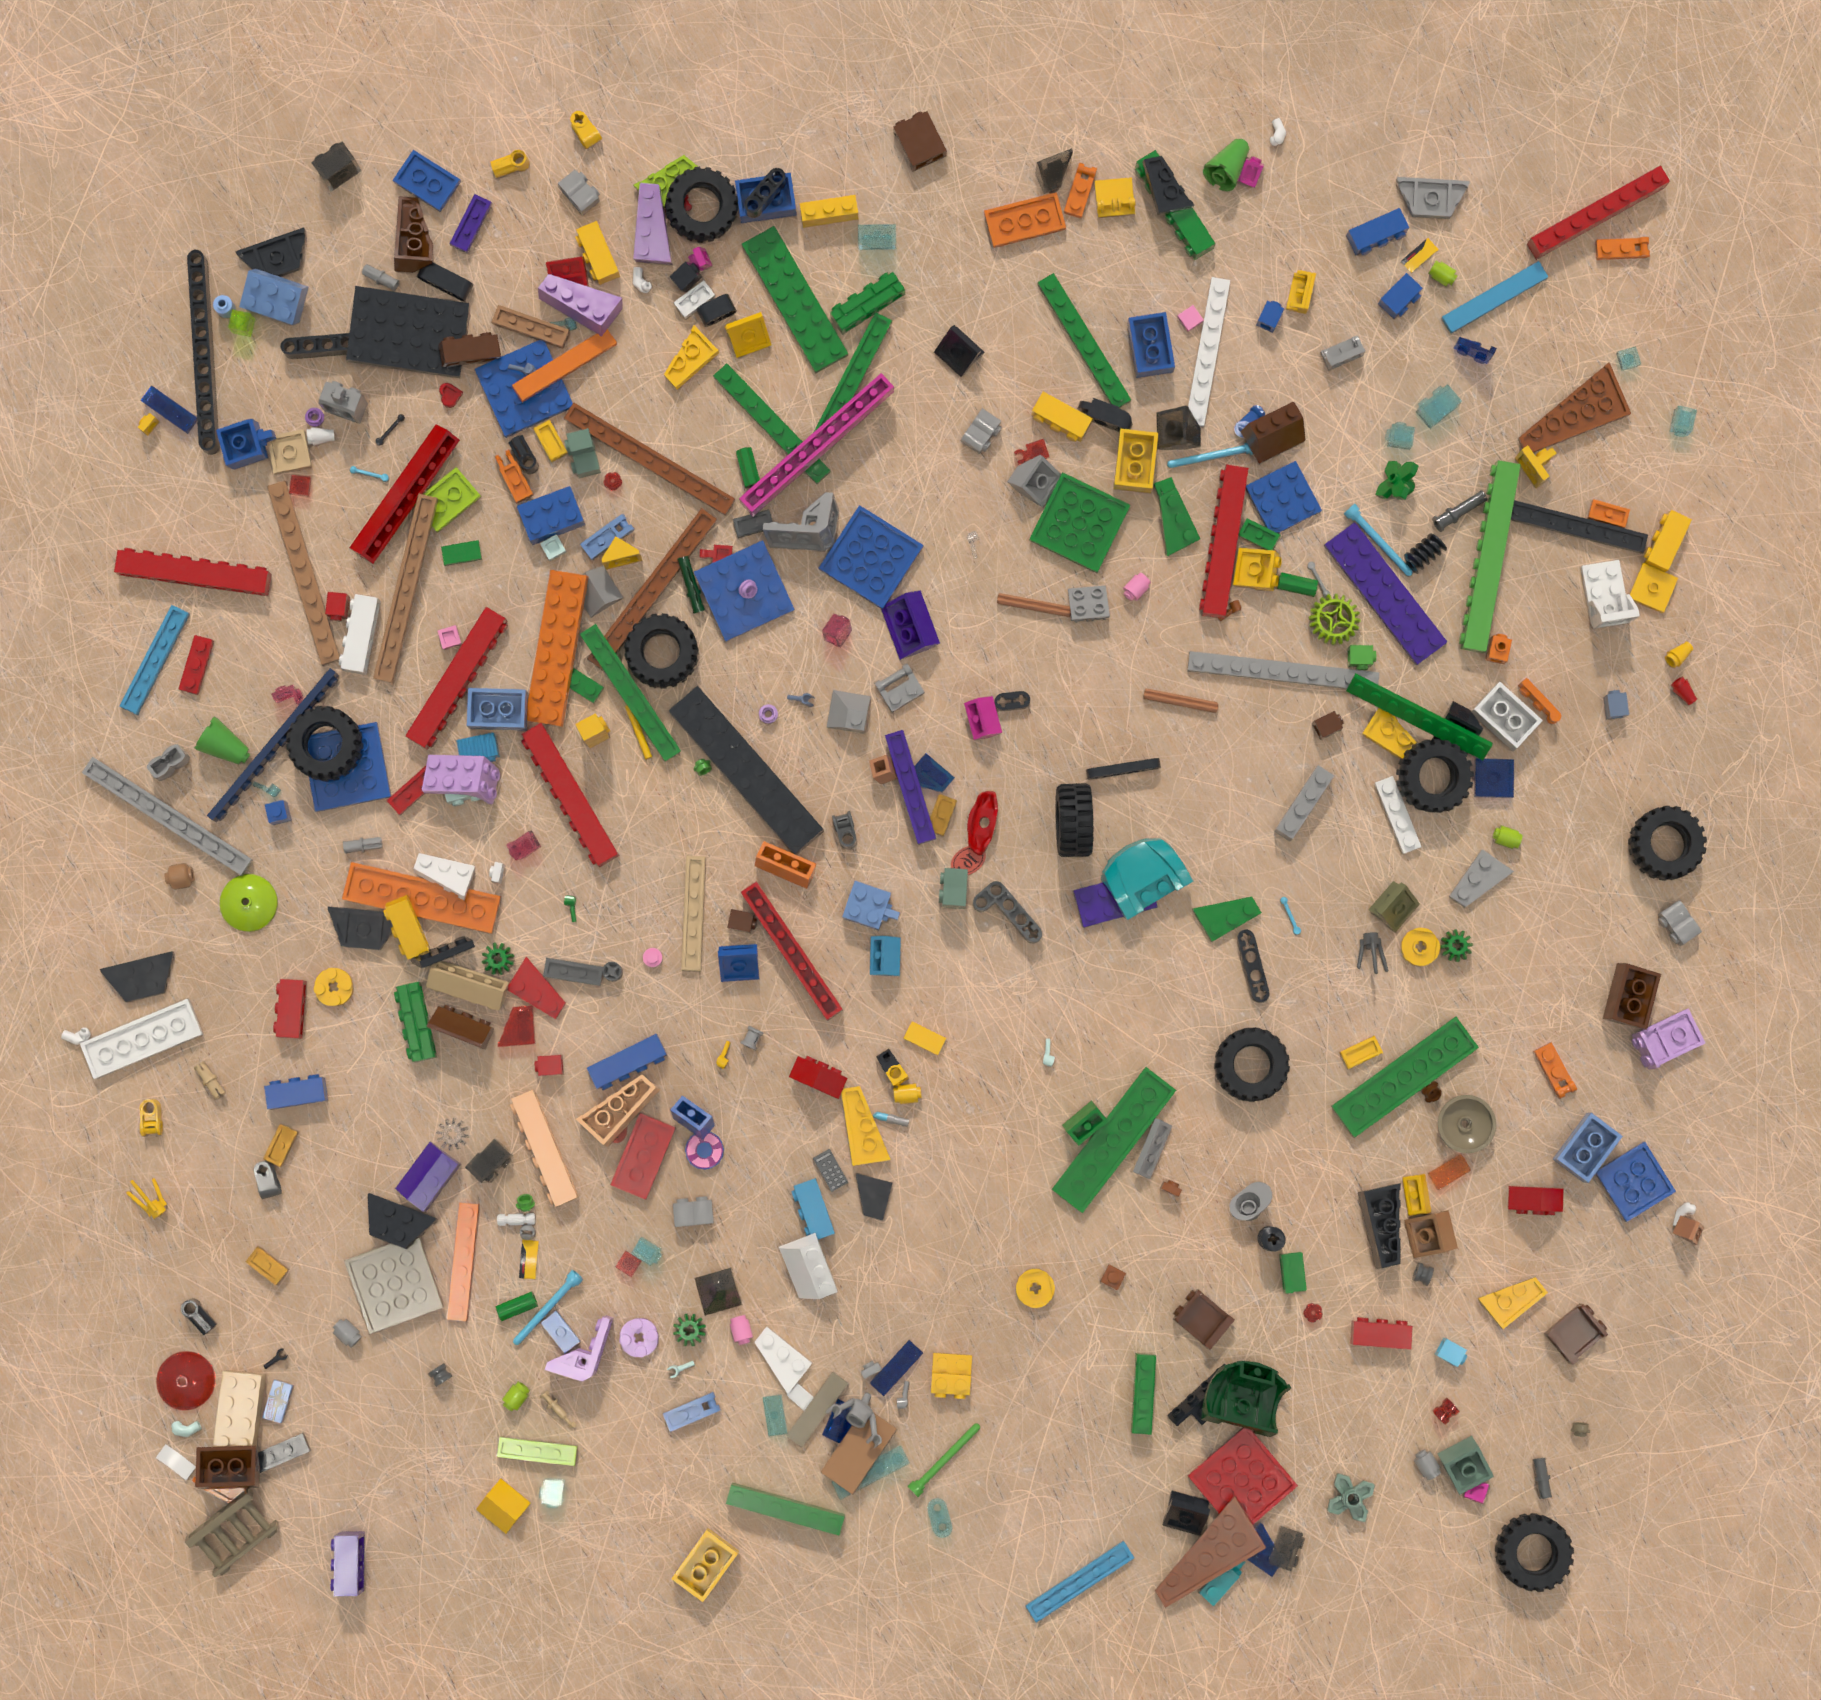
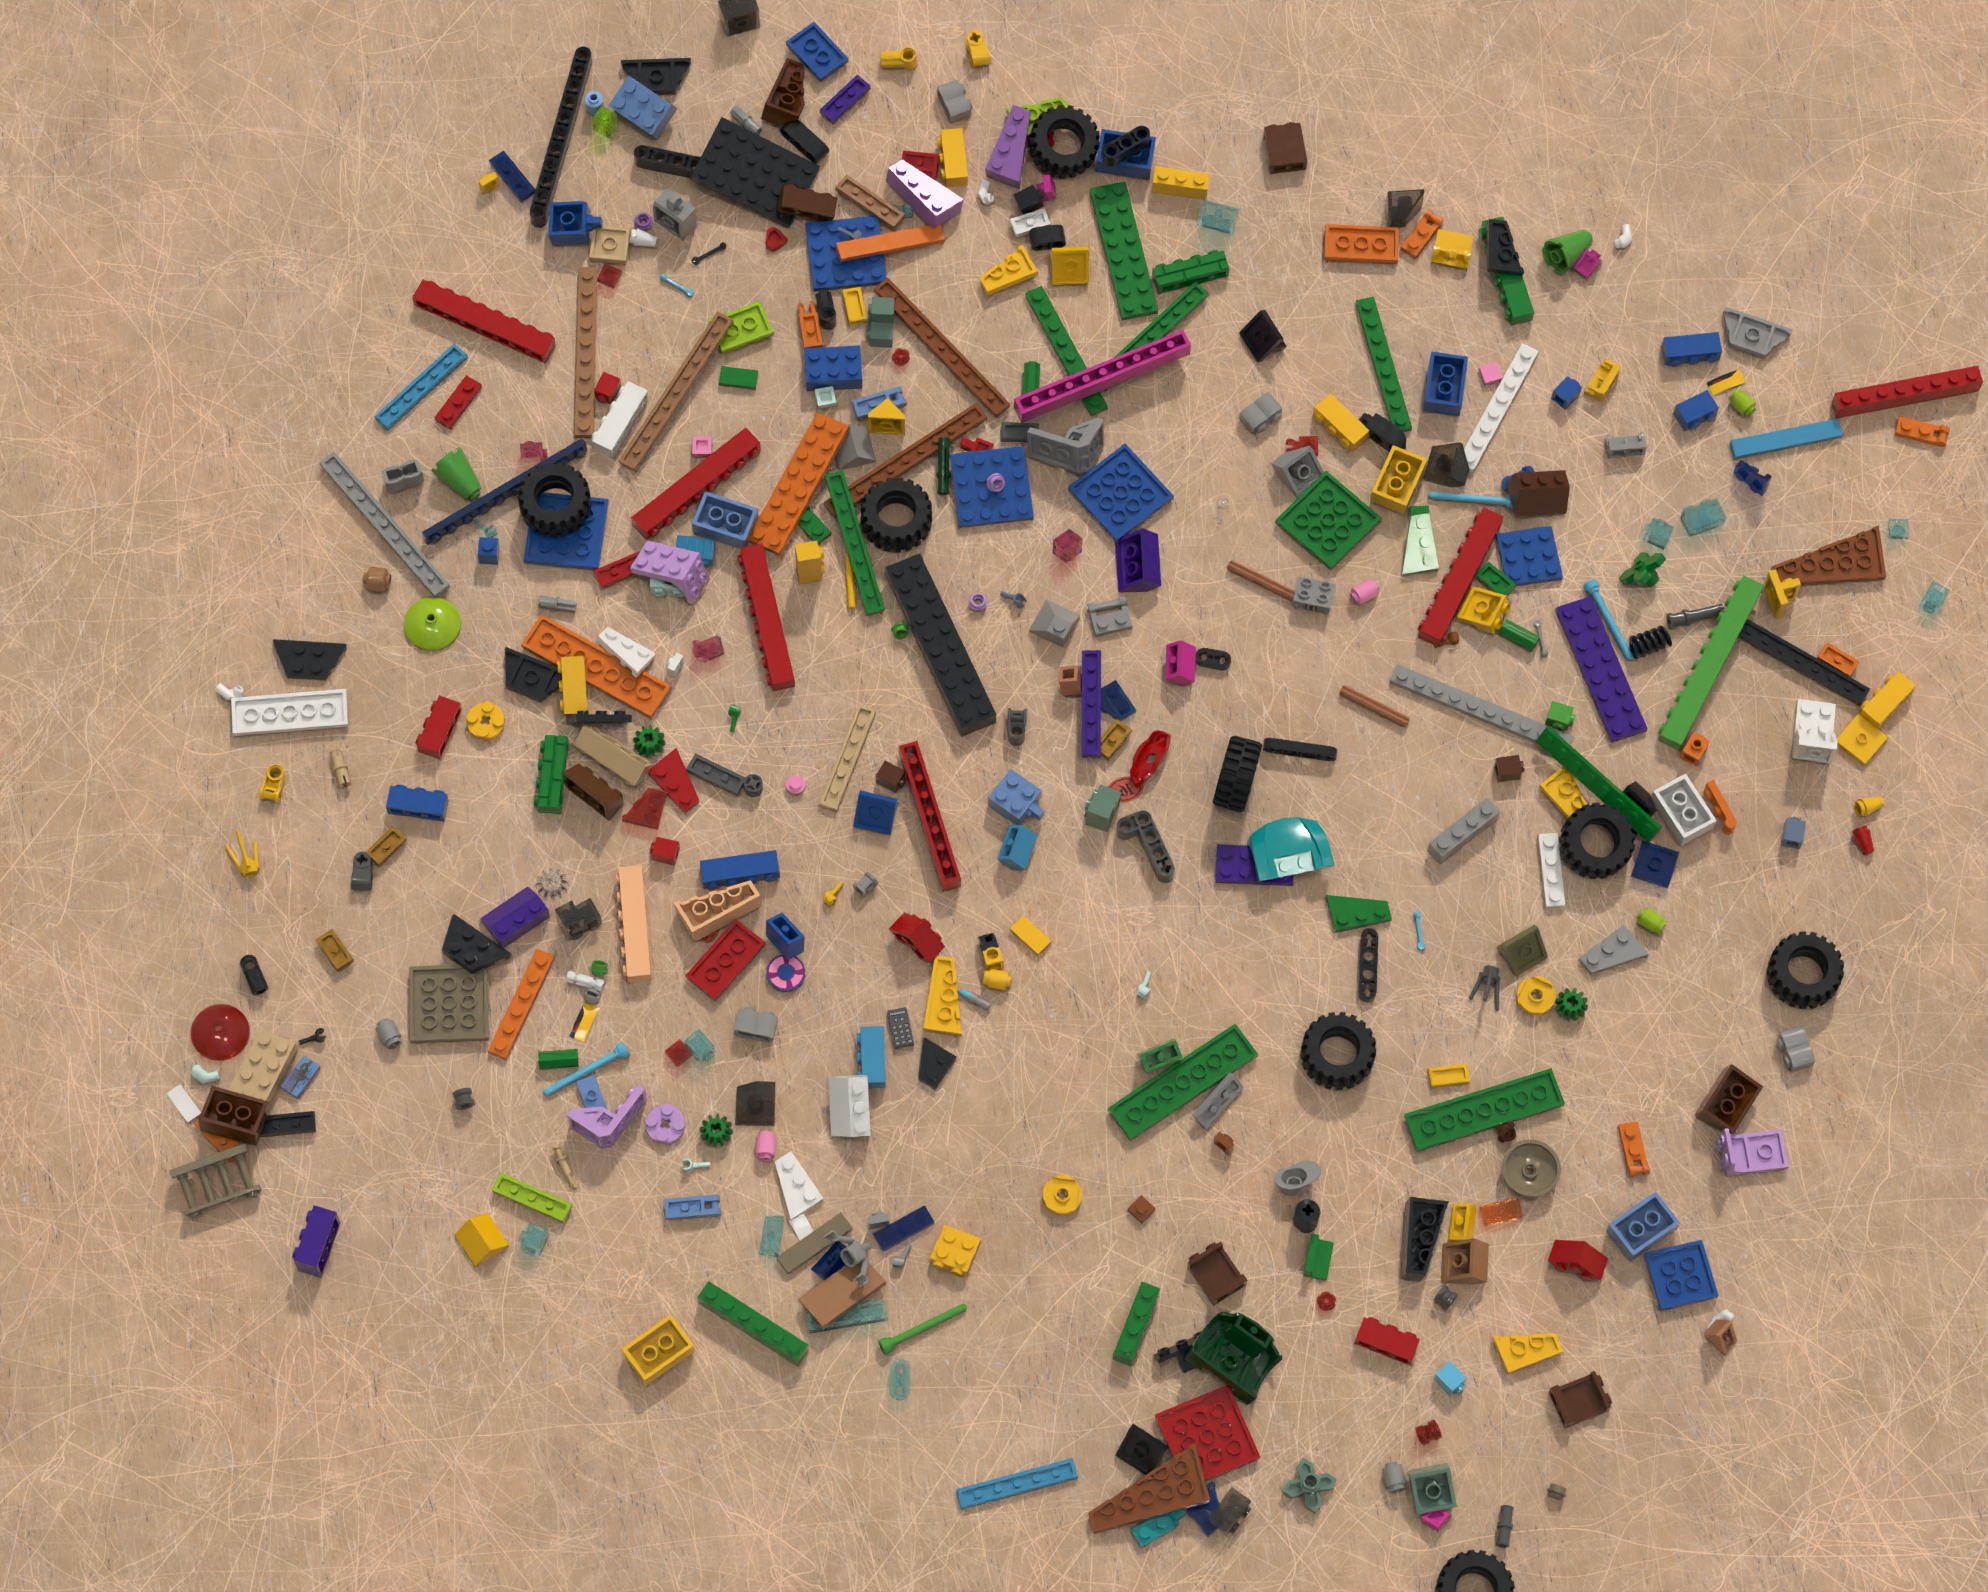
camera: 15 degrees right, 15 degrees down
(404, 493) = (703, 309): red brick -> none
(515, 1396) = (529, 1140): lime brick -> none
(785, 864) = (949, 737): orange brick -> none
(1351, 625) = (1554, 686): lime gear -> none

